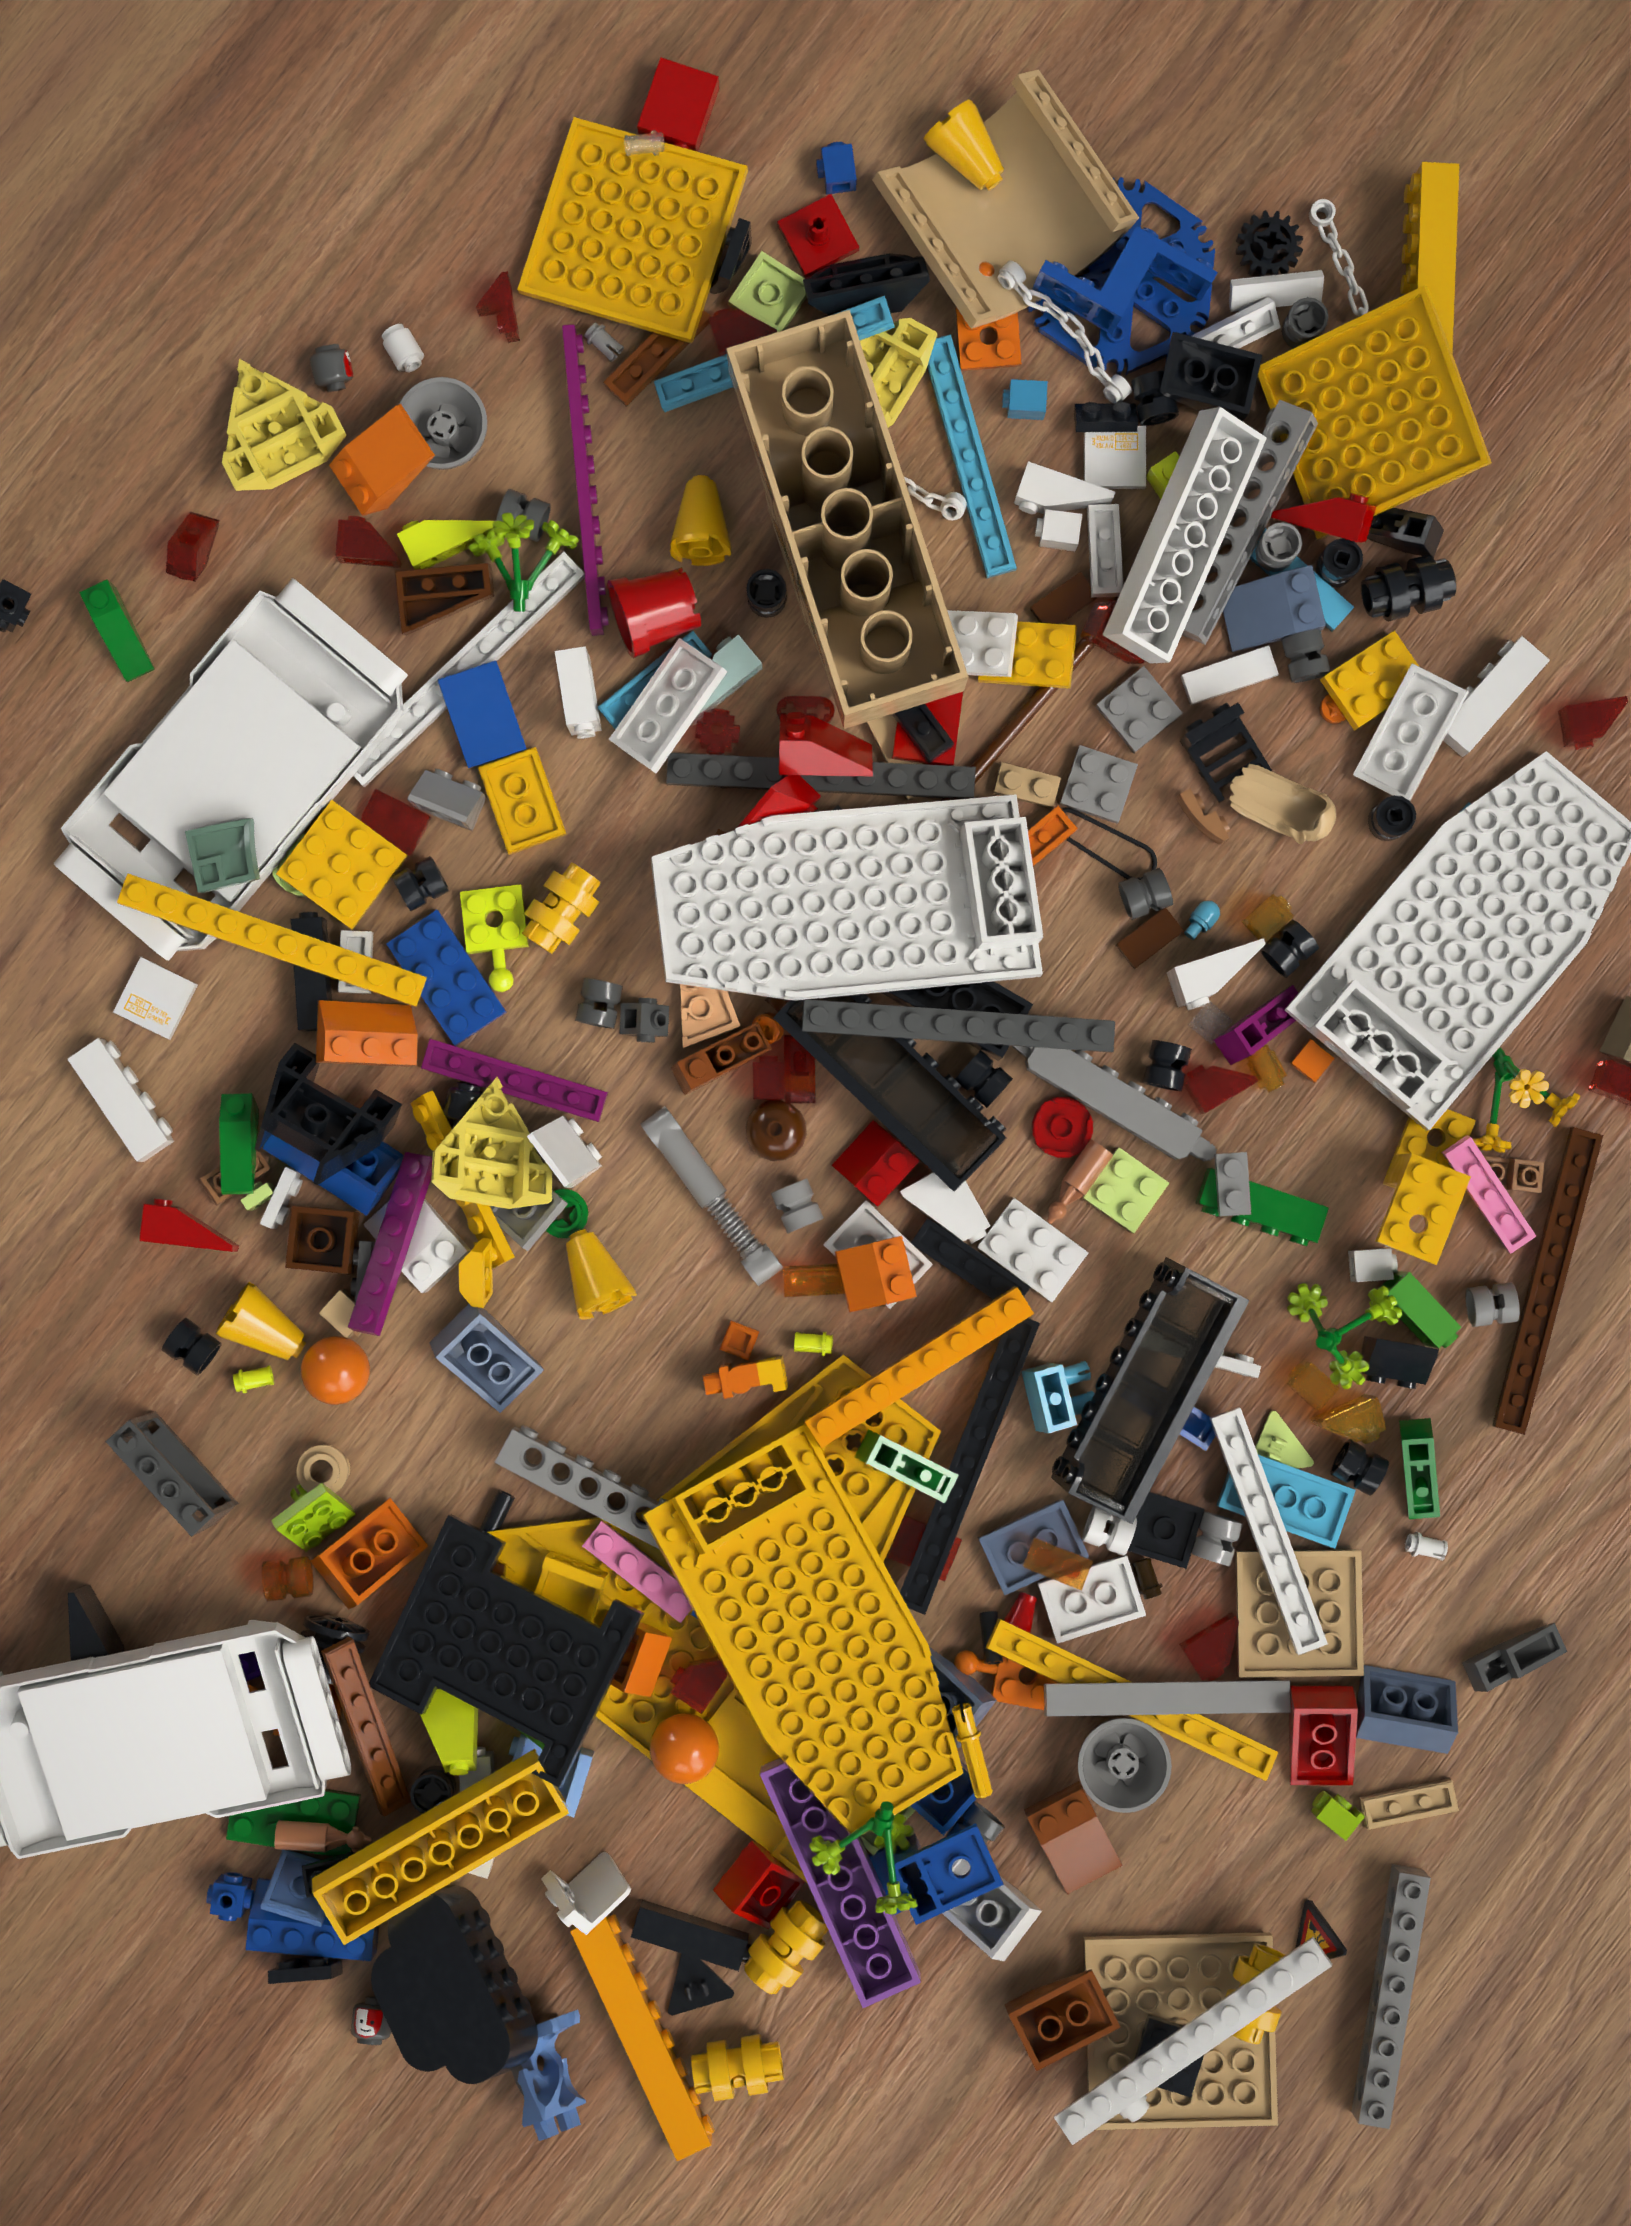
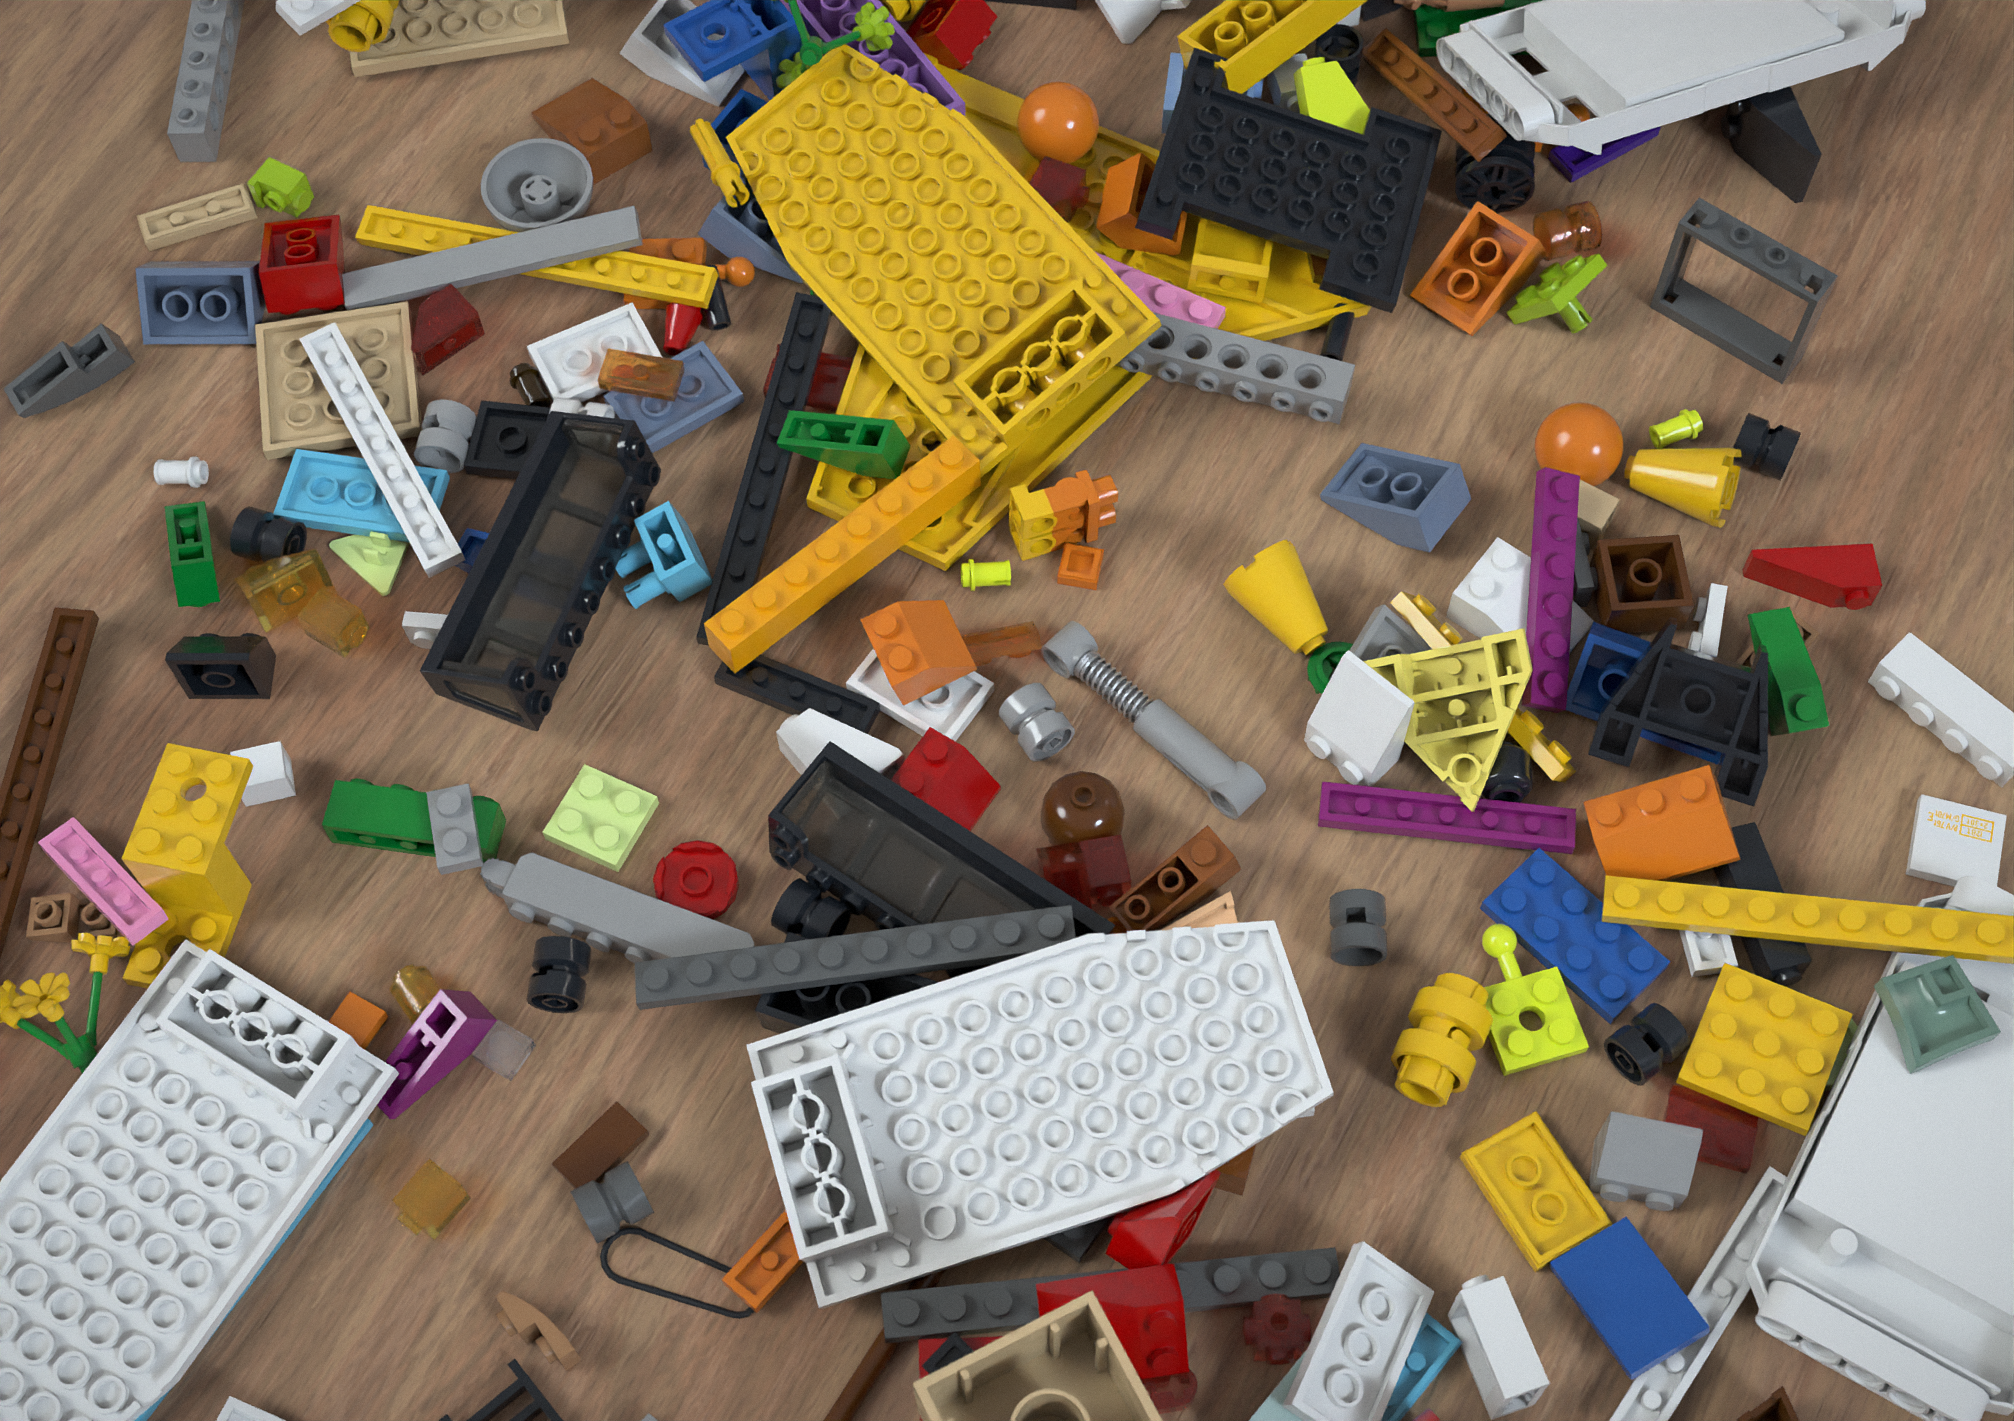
camera: 175 degrees right, 25 degrees down
(261, 1194) = (1736, 627): yellowish green plate -> none
(325, 1452) = (1563, 359): tan piece -> none
(476, 1274) = (1432, 569): yellow slope -> none
(651, 1020) = (1296, 912): dark grey brick -> none
(988, 1824) = (704, 102): dark grey wheel -> none
(1027, 784) = (805, 1337): tan plate -> none
(1032, 1250) = (716, 727): white plate -> none
(1079, 1178) = (663, 819): nougat wheel -> none
(1098, 784) = (698, 1357): light grey plate -> none
(1202, 918) = (525, 1187): medium azure cylinder -> none
(1204, 977) = (503, 1102): white slope -> none
(1215, 1086) = (486, 962): clear red slope -> none
(1282, 804) = (417, 1365): tan hair -> none
(1289, 948) = (404, 1144): black wheel -> none
(1316, 1926) = (301, 69): piece -> none
(1345, 1367) = (290, 641): lime plant -> none
(1391, 818) = (252, 1371): black wheel -> none
(1422, 1311) = (191, 713): bright green window -> none
(1481, 1305) = (112, 748): light grey wheel -> none

